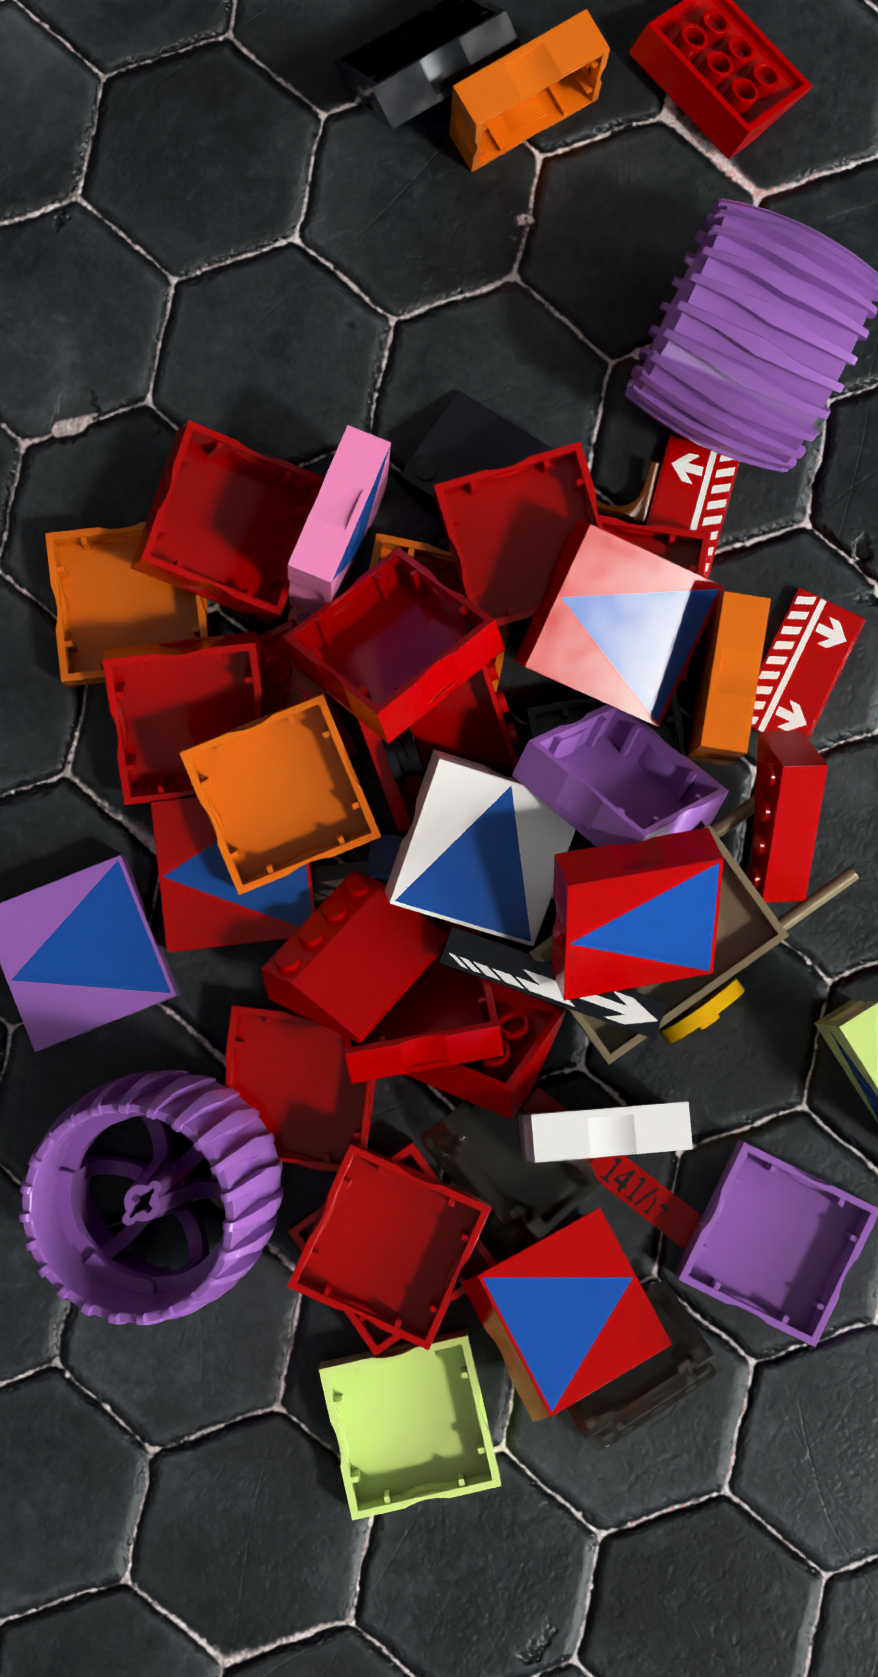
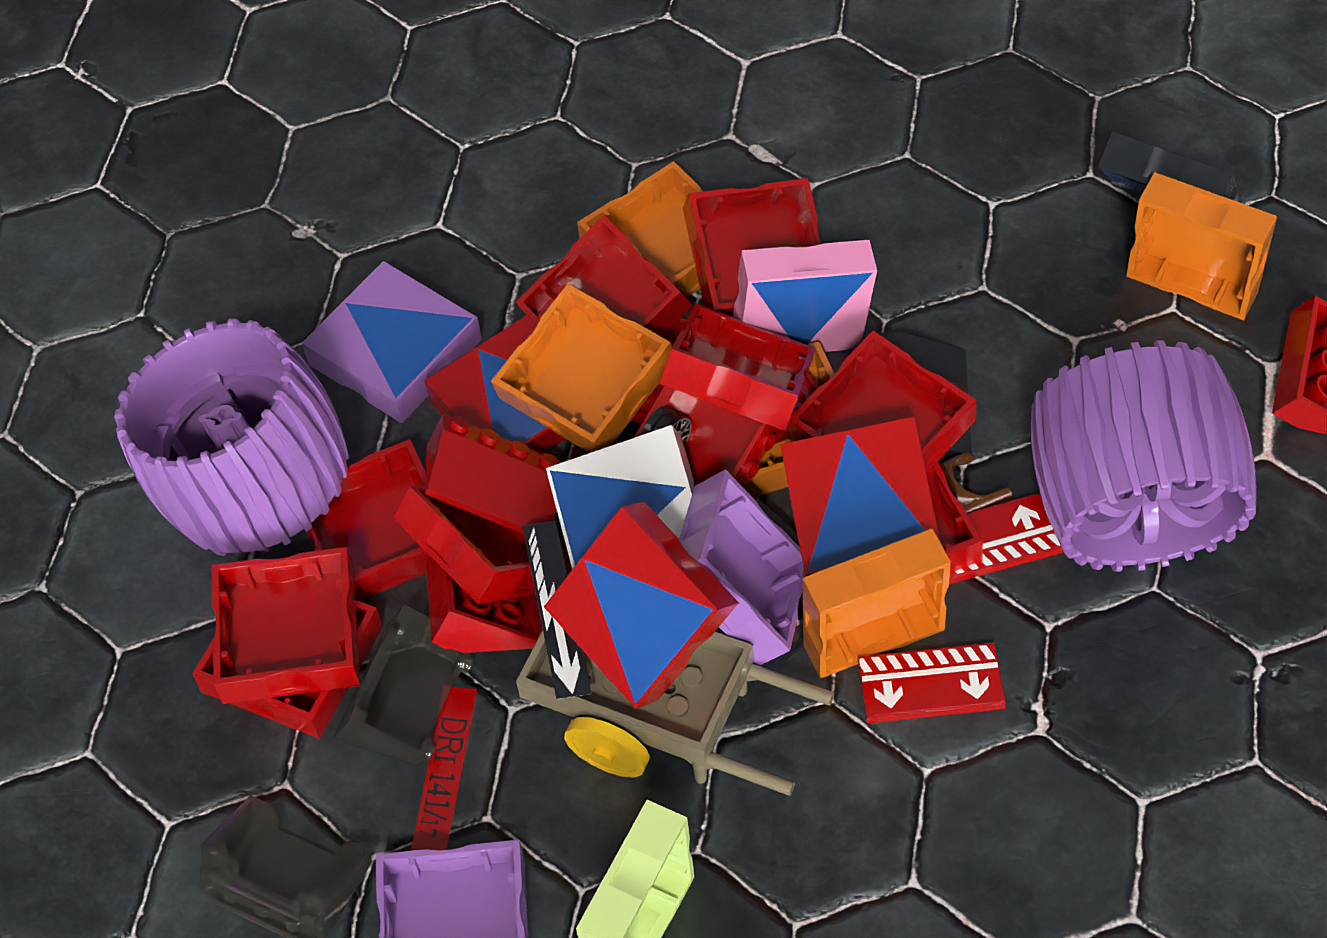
camera: 70 degrees right, 30 degrees down
(409, 1424) = (152, 738): yellowish green tile -> none
(567, 1315) = (299, 781): tile -> none
(605, 1132) = (462, 713): white tile -> none
(785, 814) = (795, 699): red wedge -> none

